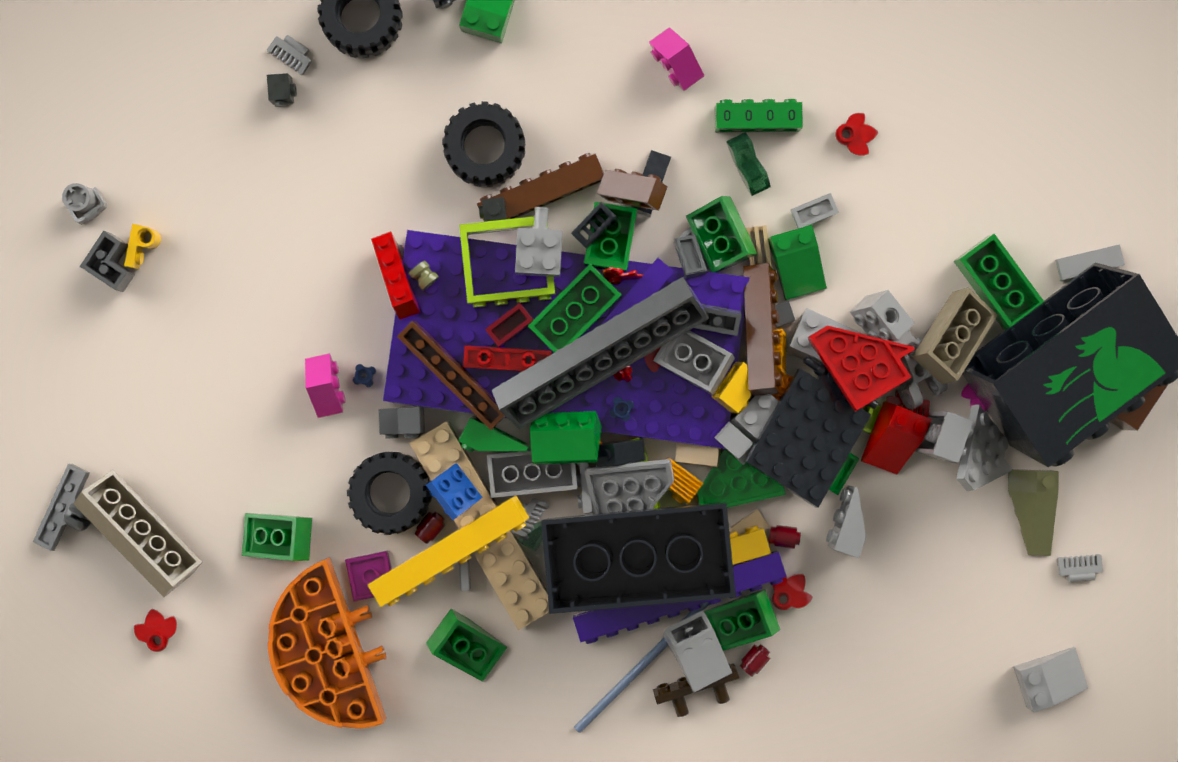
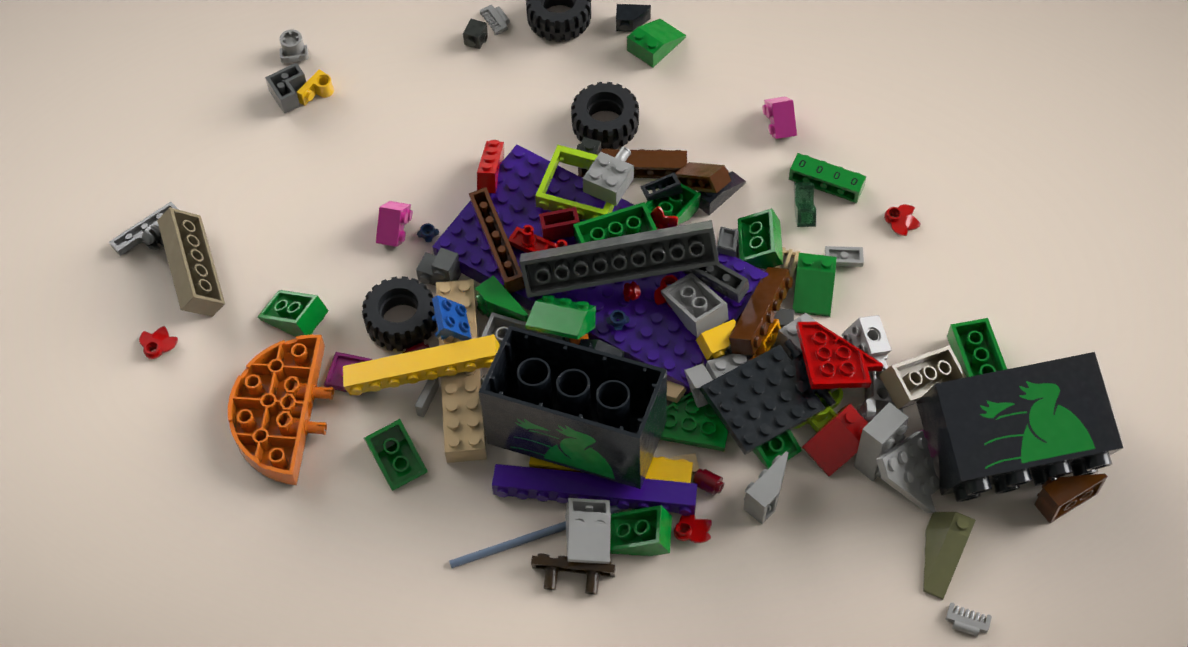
camera: 20 degrees right, 30 degrees down
(423, 275) = (512, 170): olive wheel -> none
(755, 659) = (635, 569): dark red brick -> none

